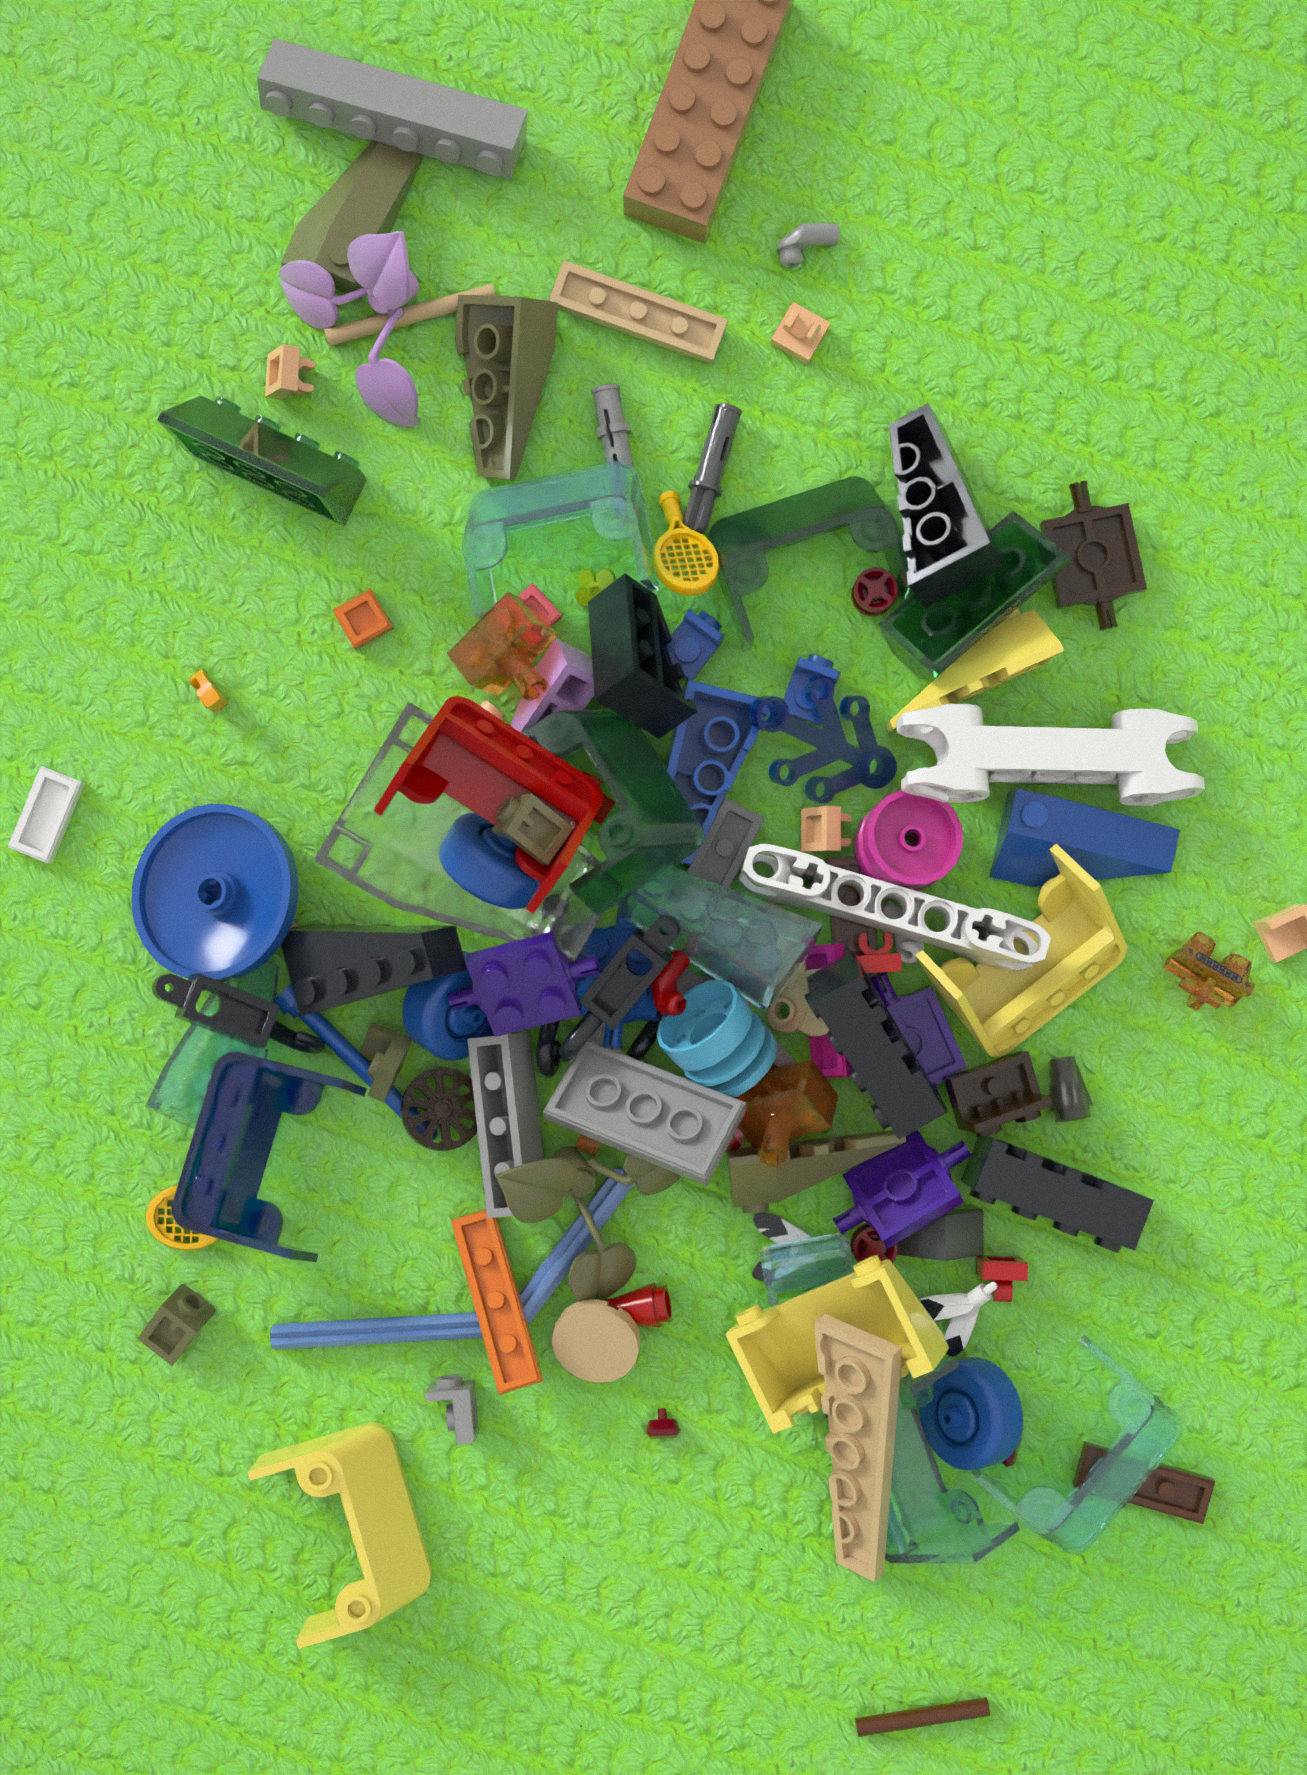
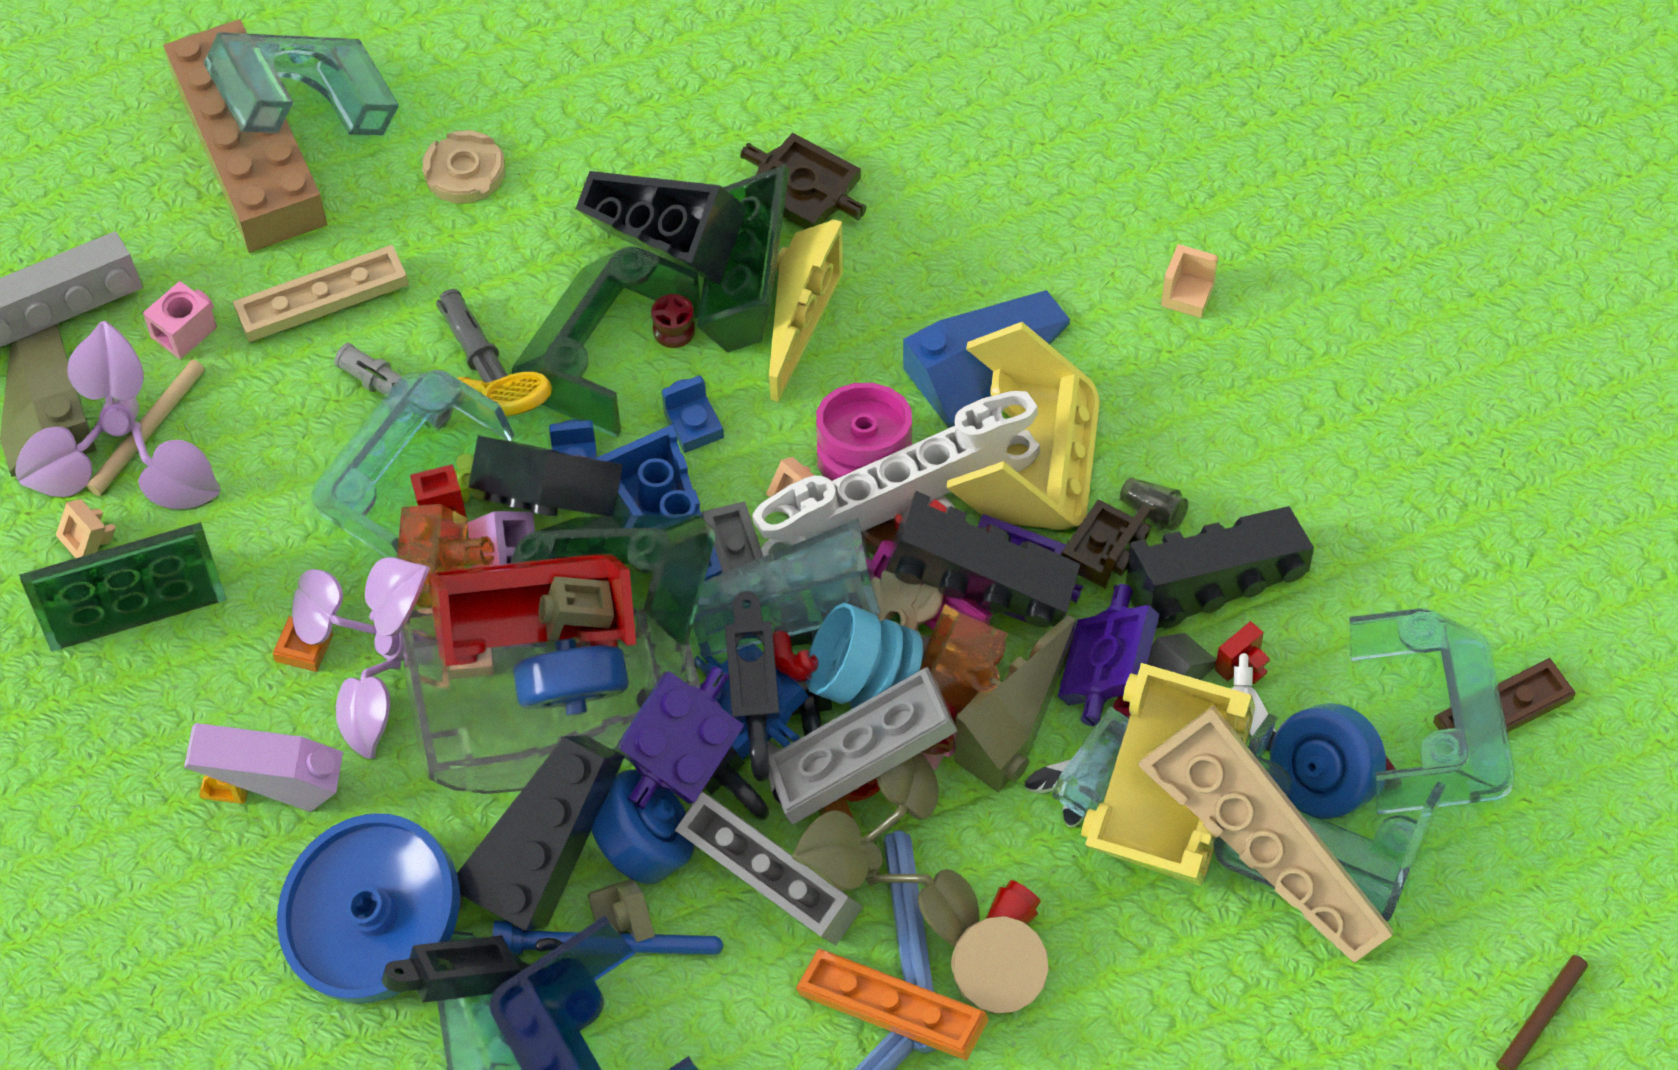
camera: 40 degrees left, 30 degrees down
(46, 815) = (170, 987): white tile -> none
(234, 713) = (266, 763): none -> lavender slope
(412, 690) = (392, 595): none -> lavender plant
(439, 1109) = (706, 913): dark brown wheel -> none
(500, 225) = (180, 319): none -> bright pink brick
(506, 362) = (252, 396): olive wedge -> none
(556, 593) = (438, 487): none -> red panel
(662, 1427) = (1119, 989): dark red rock -> none
(800, 333) = (453, 219): light nougat tile -> none
(804, 236) = (394, 172): light grey arm -> none
(830, 743) = (787, 421): plant -> none
(831, 96) = (249, 70): none -> clear light blue arch
(854, 287) = (463, 167): none -> tan tile
(980, 754) = (858, 336): white piece -> none
(1205, 977) = (1165, 351): clear orange hips -> none

